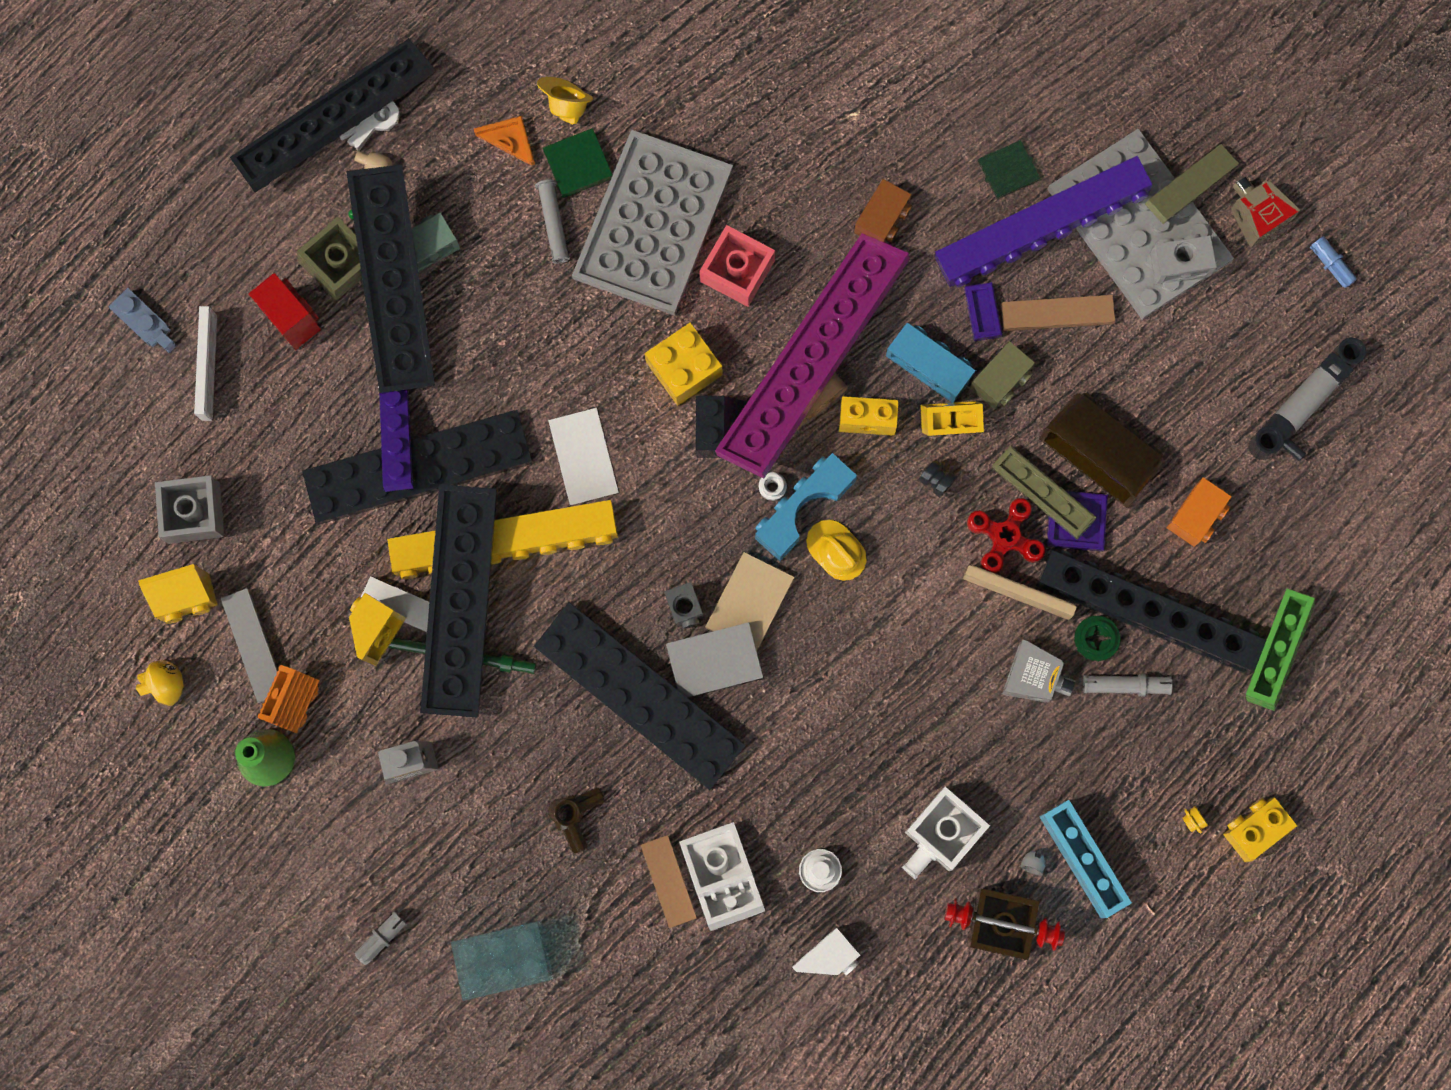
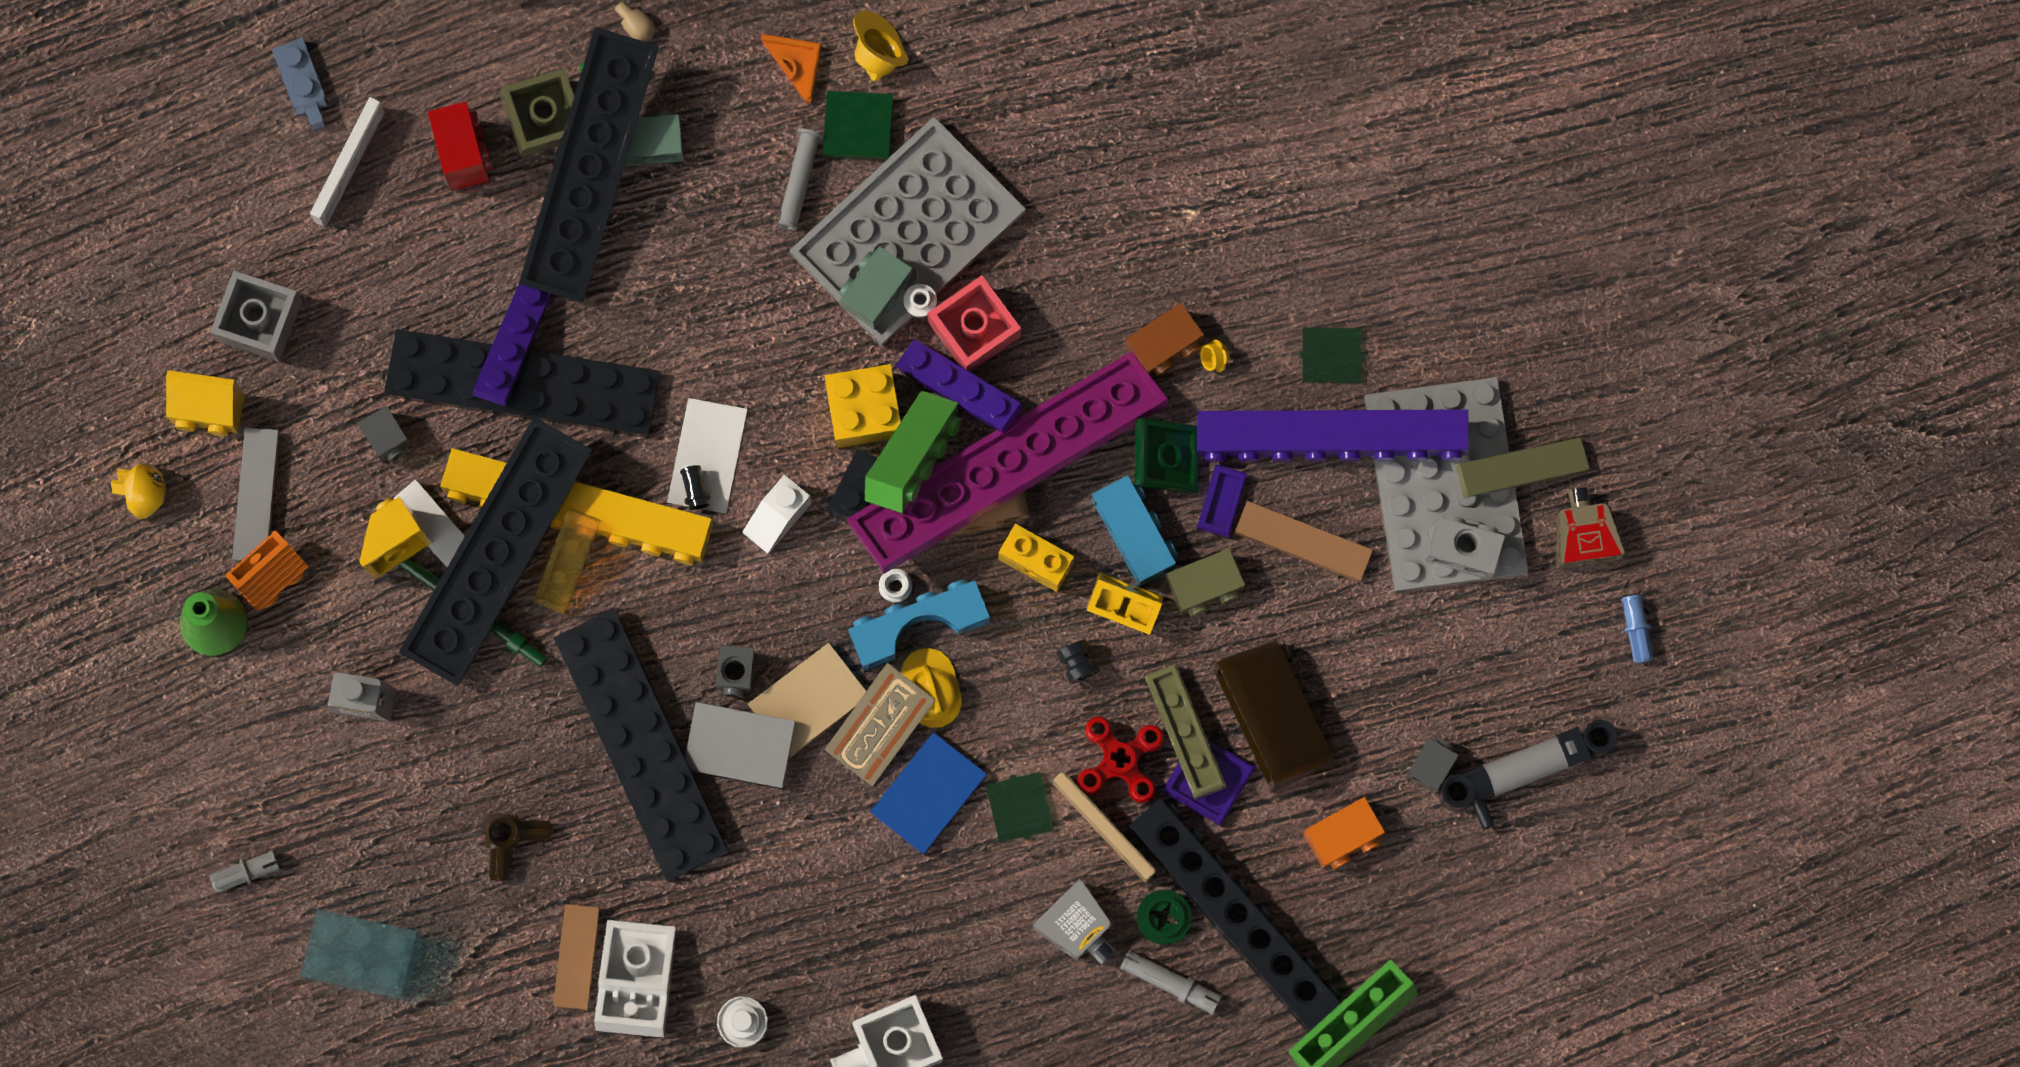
camera: 20 degrees right, 0 degrees up
(331, 553) = (385, 435): none -> dark grey brick
(516, 583) = (567, 560): none -> clear yellow tile
(586, 483) = (695, 488): none -> black pin
(650, 270) = (875, 286): none -> sand green brick
(658, 474) = (777, 514): none -> white slope
(688, 274) = (919, 310): none -> white plate
(740, 378) = (912, 452): none -> bright green brick
(748, 316) = (959, 386): none -> dark purple plate
(813, 594) = (879, 724): none -> dark tan sticker
(874, 629) = (928, 793): none -> blue tile
(925, 208) = (1214, 356): none -> yellow plate
(927, 296) = (1166, 456): none -> dark green tile
(947, 607) = (1019, 807): none -> clear green piece
(1237, 431) = (1432, 764): none -> dark grey brick

